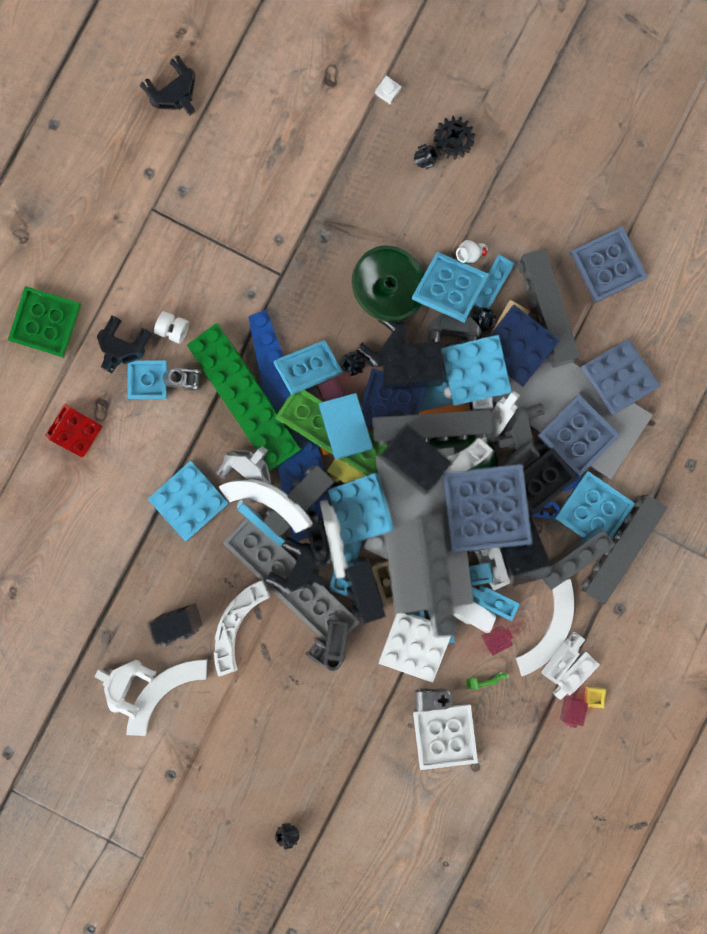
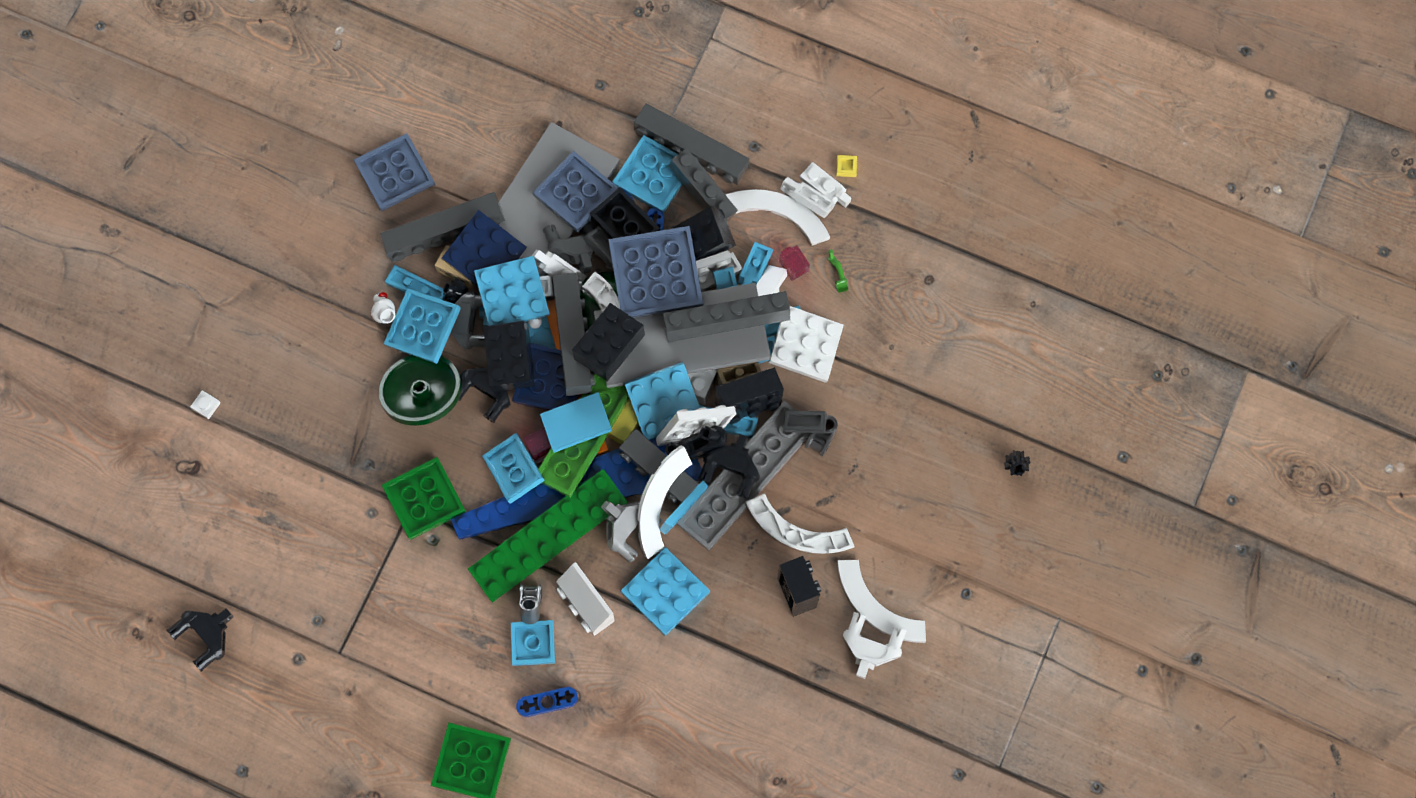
camera: 90 degrees left, 15 degrees down
(73, 431) = (591, 722): red bracket -> none
(87, 386) = (561, 693): none -> blue beam
(118, 350) = (501, 673): black connector -> none
(165, 325) = (472, 625): white wheel -> none
(180, 428) = (584, 600): none -> white slope
(287, 285) = (423, 498): none -> green plate
(353, 363) = (507, 422): black gear -> none
(425, 156) = (280, 359): black gear -> none
(430, 699) = (861, 325): flat silver piece -> none
(445, 737) = (899, 309): white plate -> none
(457, 130) = (251, 336): black gear -> none
(573, 711) = (862, 184): clear pink brick -> none
(620, 376) = (512, 154): sand blue plate -> none

